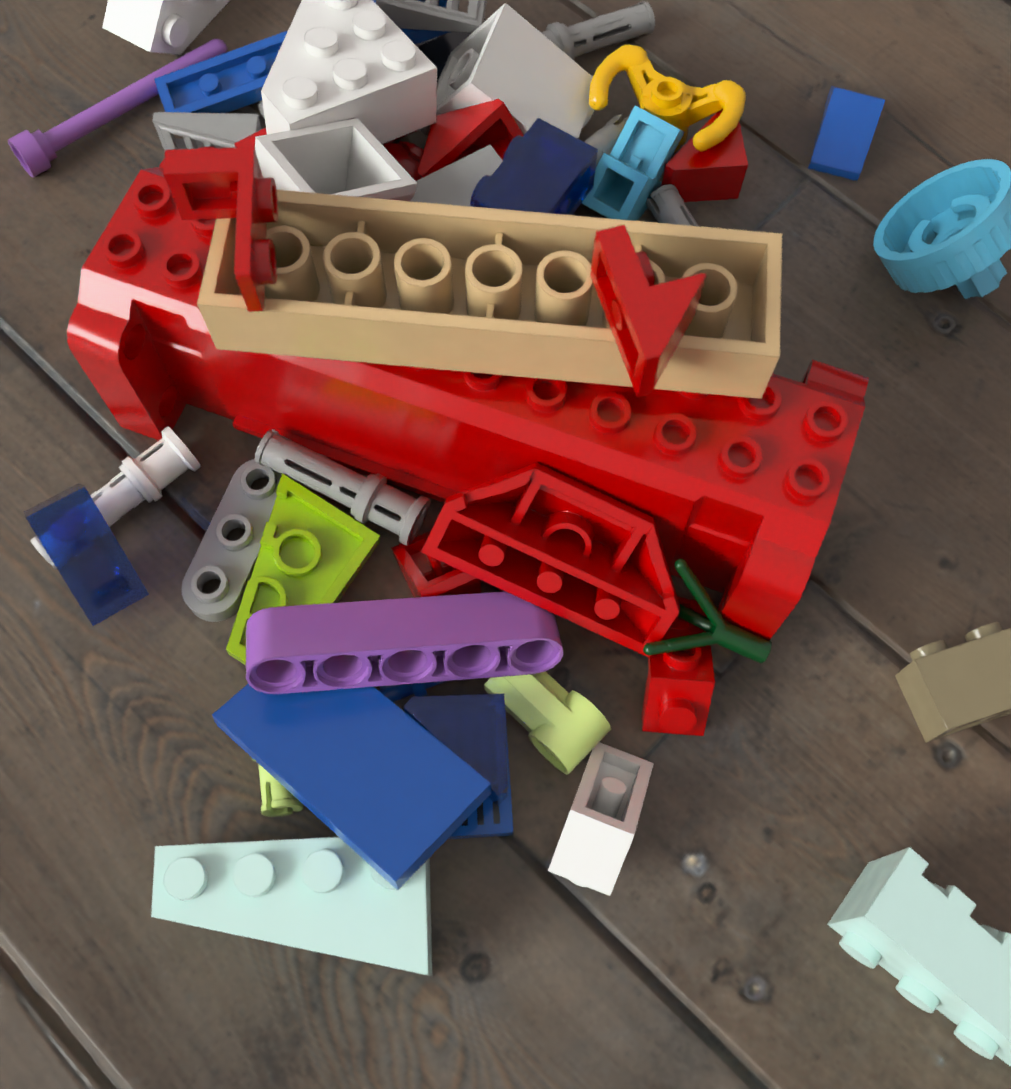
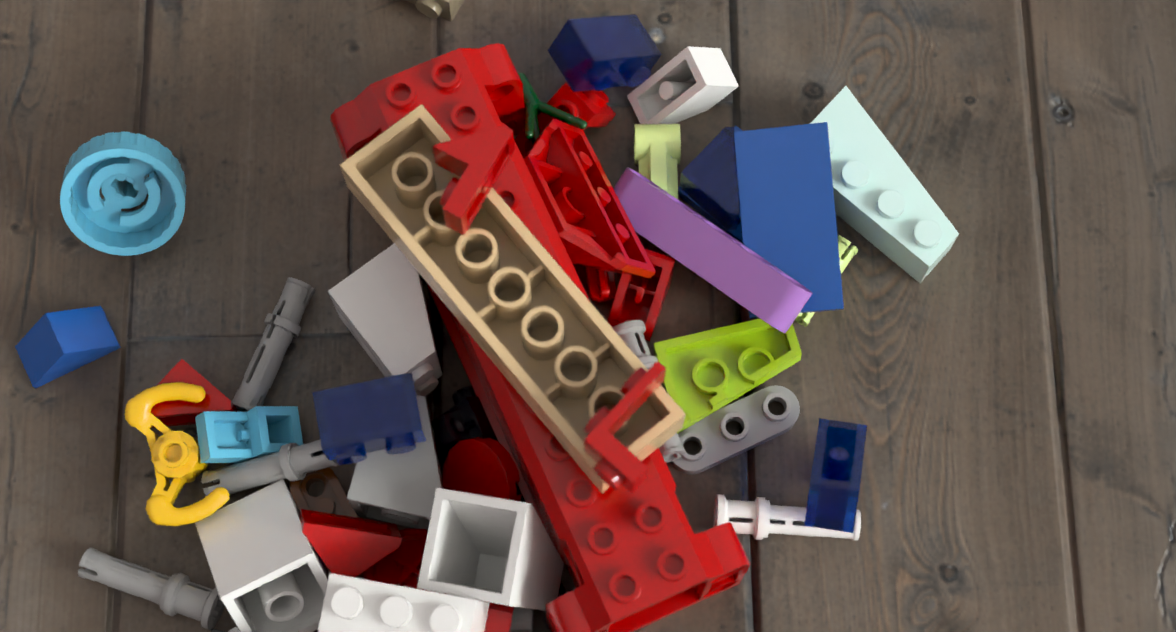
camera: 135 degrees left, 5 degrees up
(712, 758) = (604, 52): none -> clear blue brick

